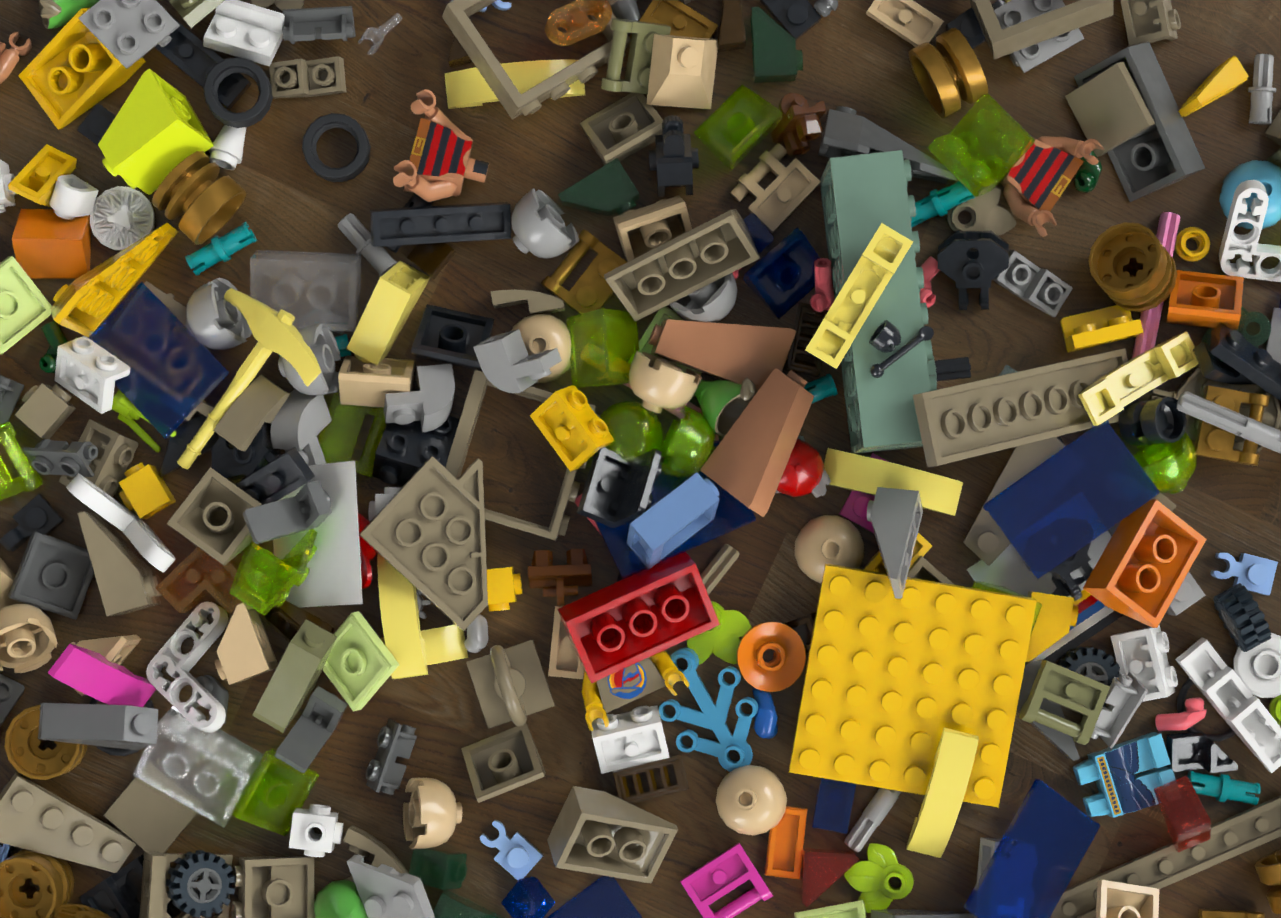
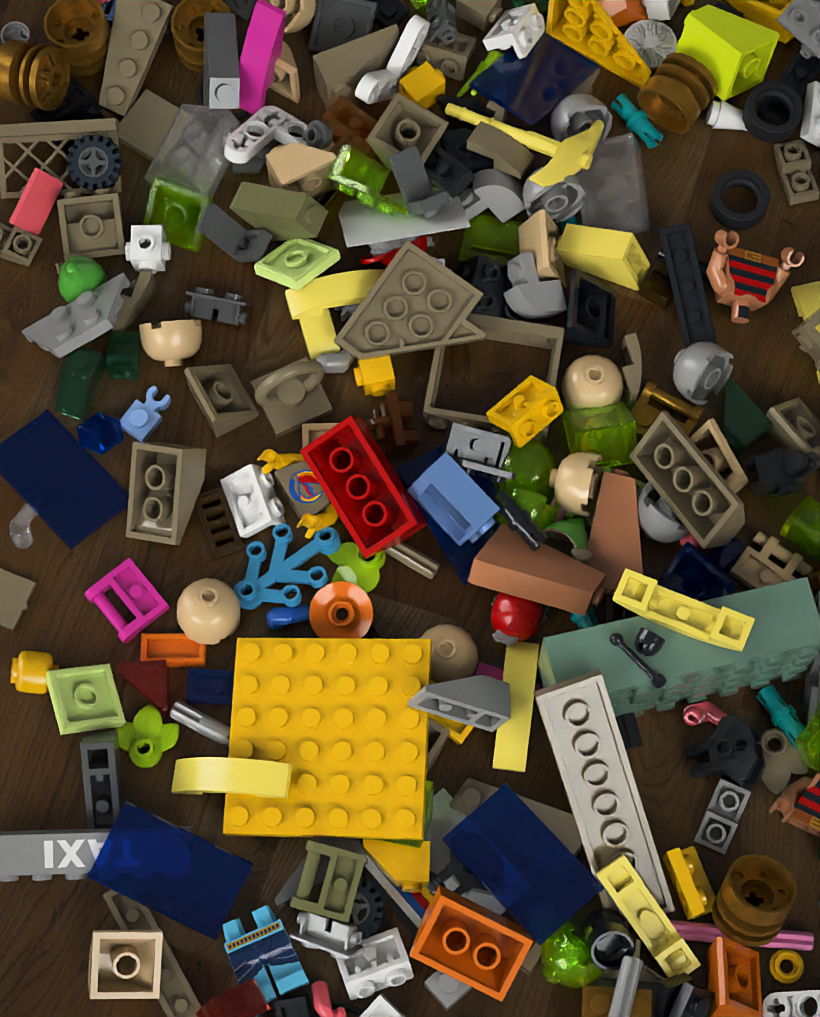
camera: 85 degrees right, 15 degrees down
(200, 619) = (318, 134): none -> dark grey plate
(361, 239) = (652, 241): light grey axle -> none
(509, 365) = (574, 350): light grey brick -> none
(707, 452) = (520, 520): none -> black pin

